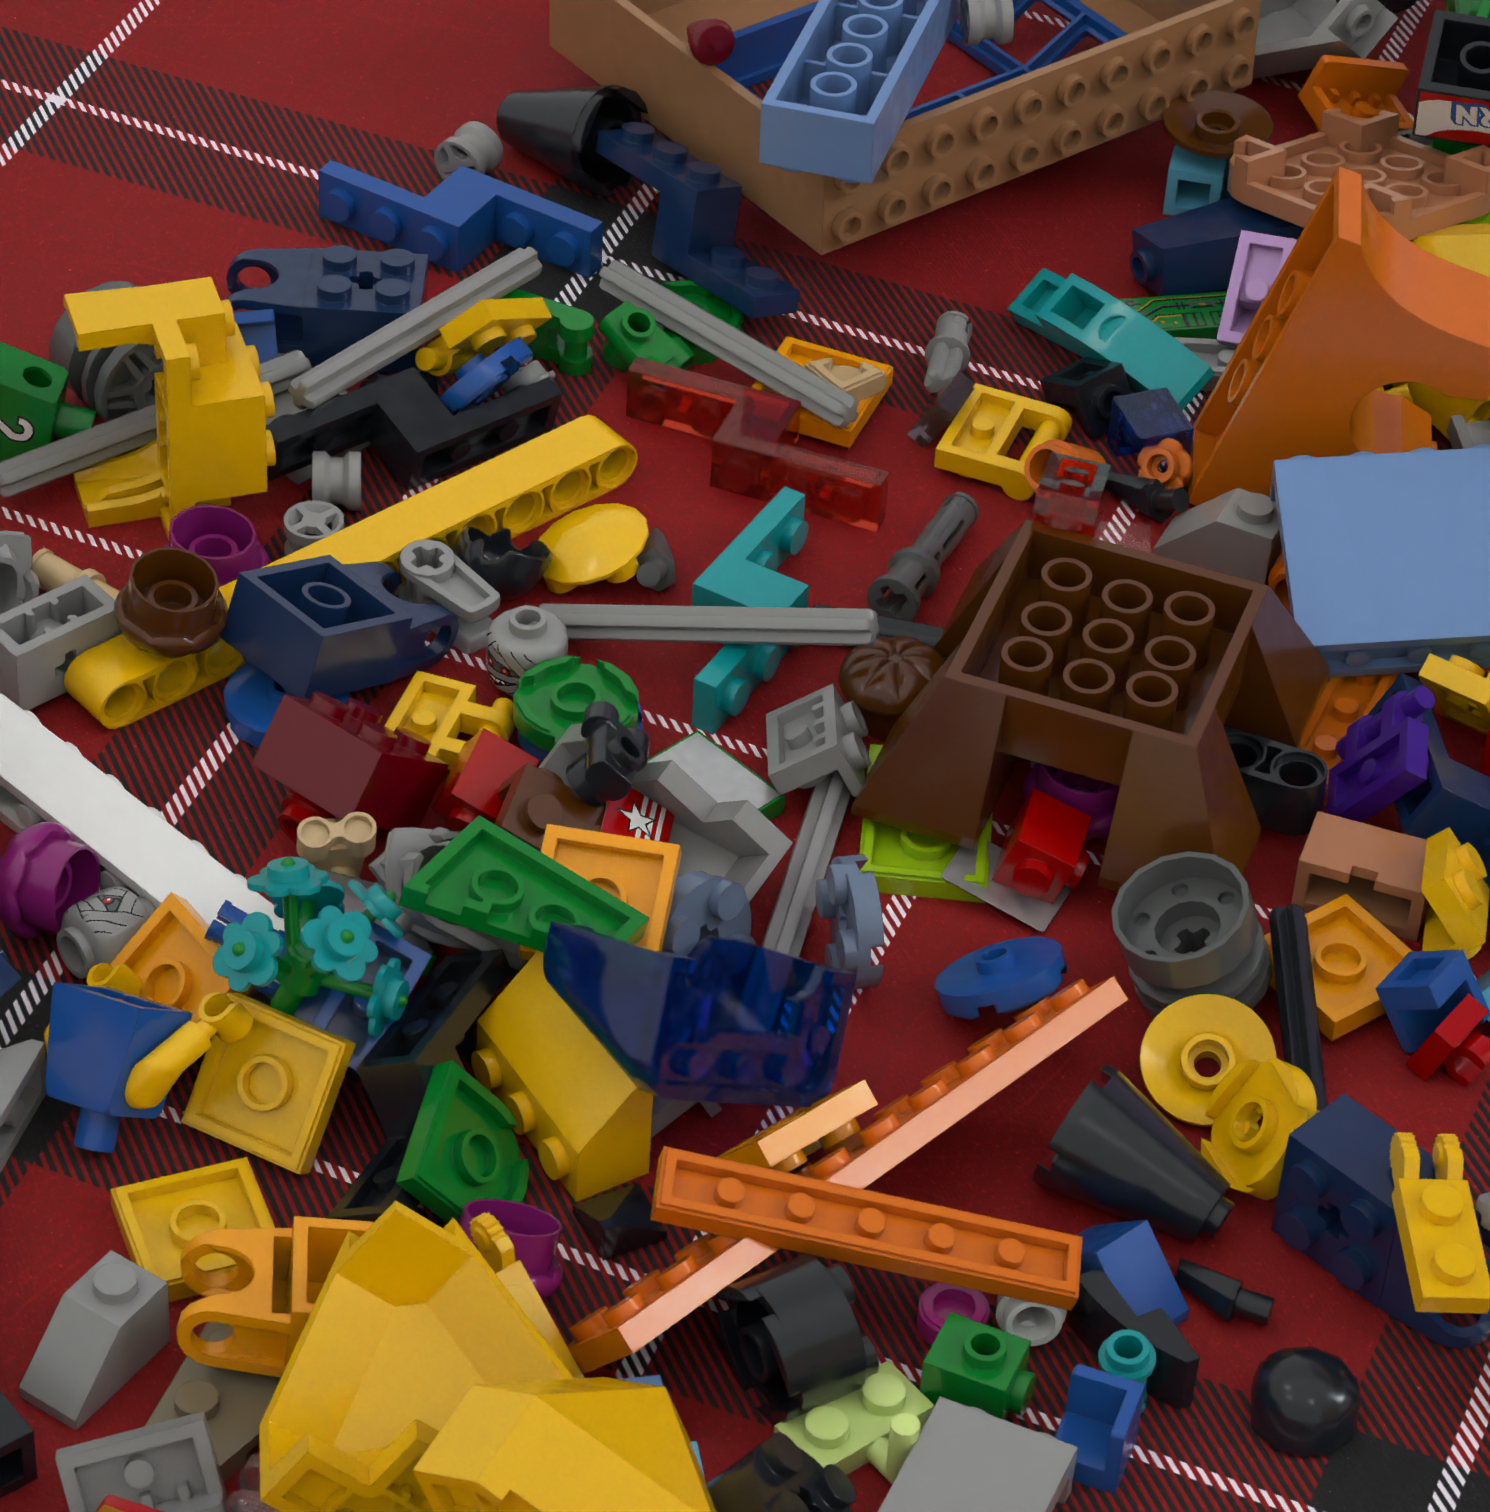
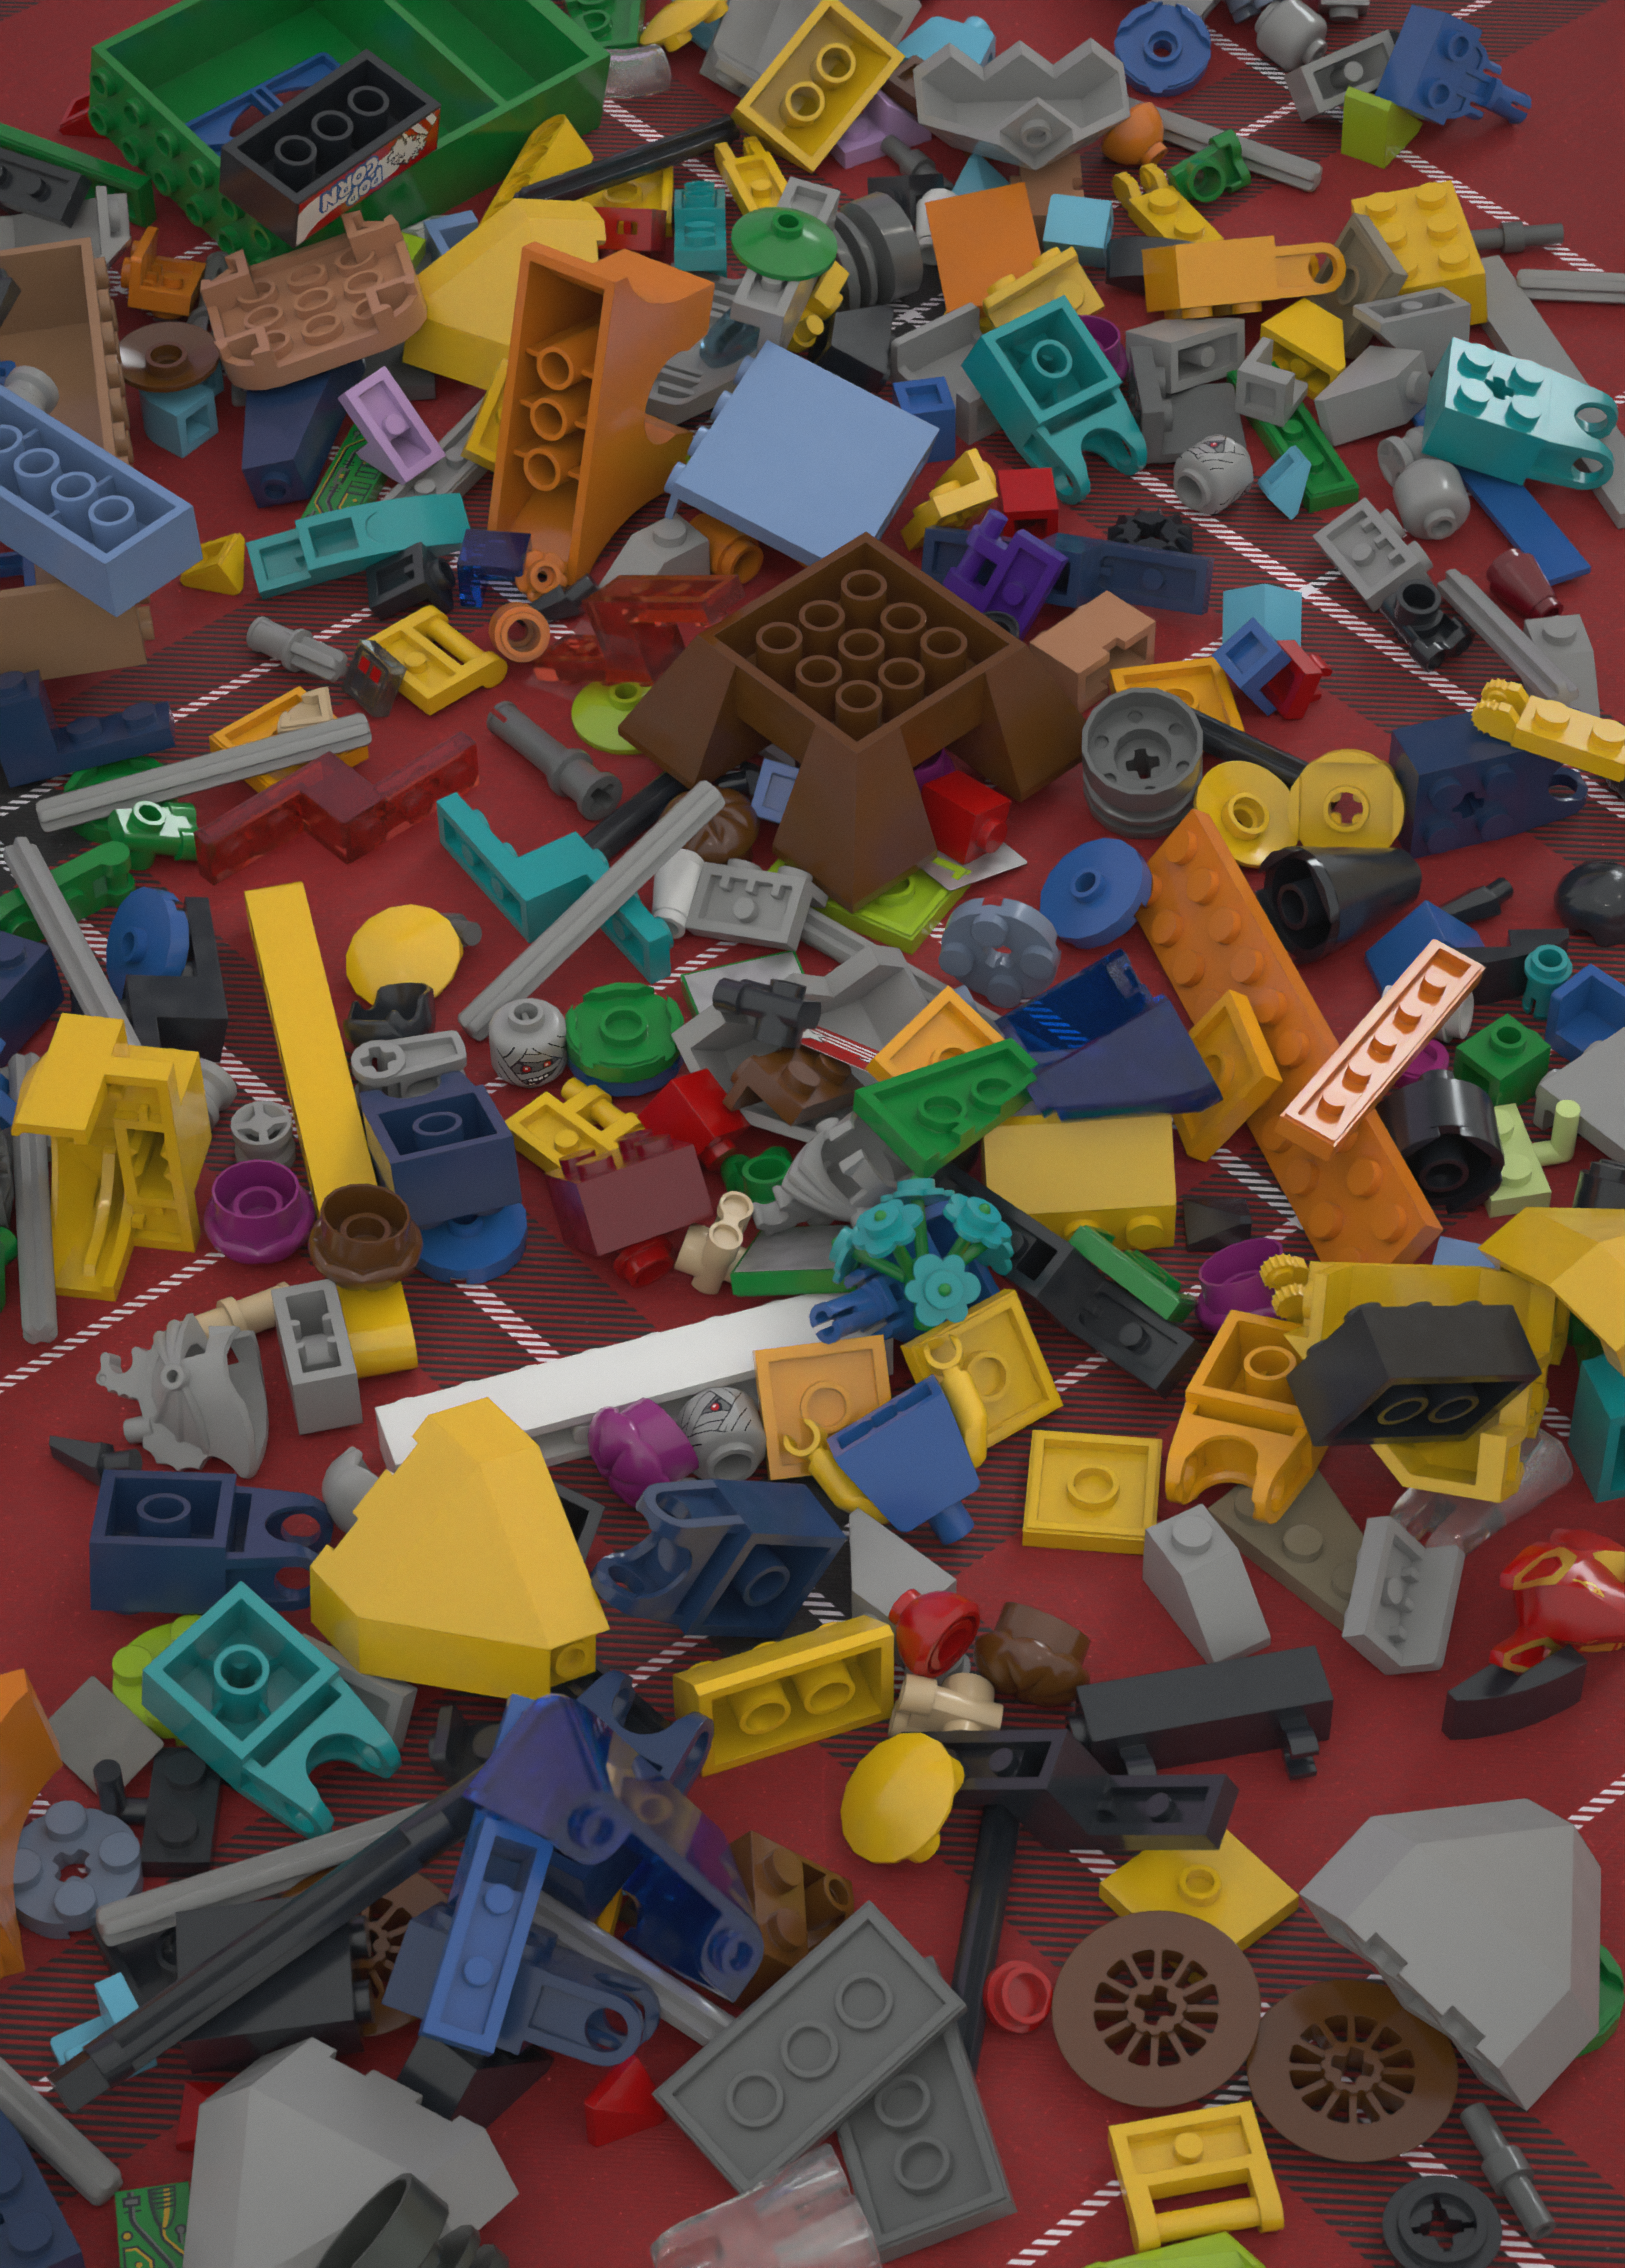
camera: 60 degrees left, 5 degrees up
(334, 1335) = (1412, 1373): none -> black brick
(481, 330) = (103, 907): yellow plate -> none
(798, 684) = (675, 889): none -> white cone
(1018, 273) = (220, 568): none -> yellow slope
(1456, 895) = (1186, 613): yellow bracket -> none

